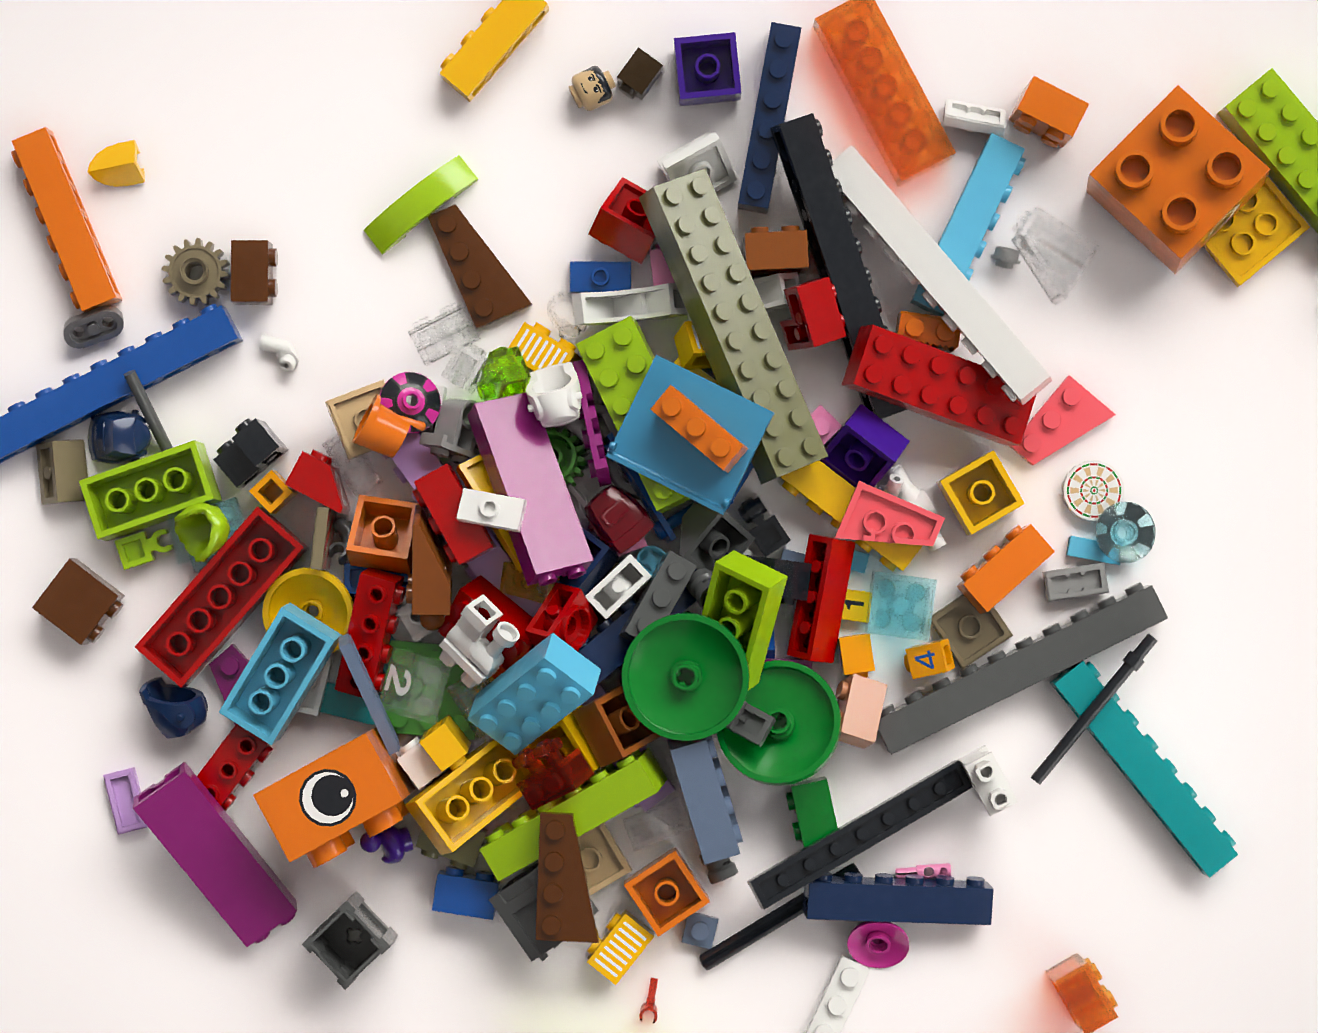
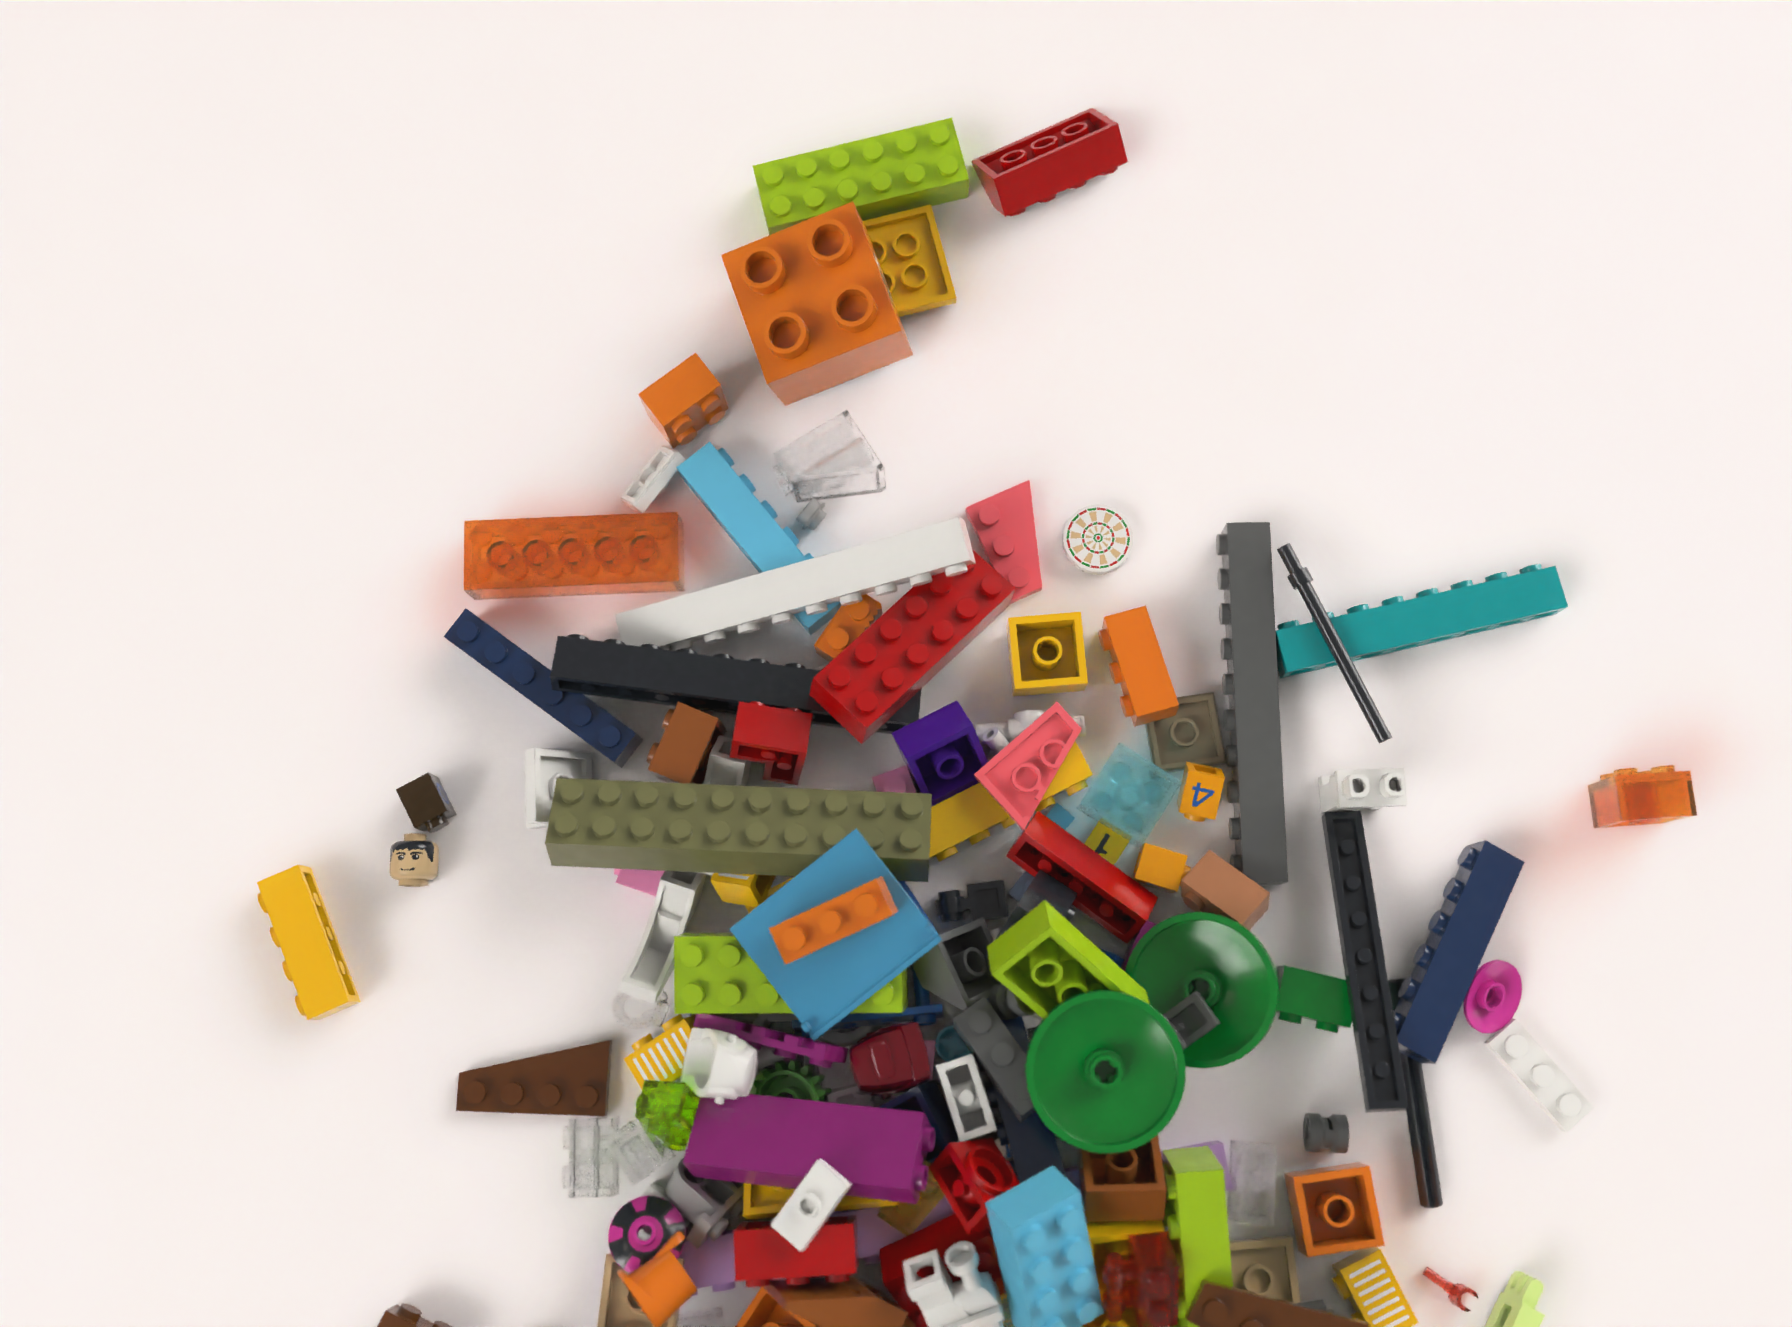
camera: 60 degrees left, 10 degrees down
(419, 203) = (437, 1113): lime slope -> none
(599, 276) = (617, 950): blue plate -> none
(623, 222) = (574, 895): red slope -> none
(700, 930) = (1393, 1190): sand blue plate -> none
(706, 798) = (1252, 1112): sand blue brick -> none
(707, 69) = (457, 727): dark purple brick -> none
(938, 869) = (1435, 891): bright pink pin -> none
(1075, 582) = (1186, 601): light grey plate -> none
(1087, 549) = (1161, 567): medium azure piece -> none
(1138, 527) = (1161, 512): clear light blue dish -> none

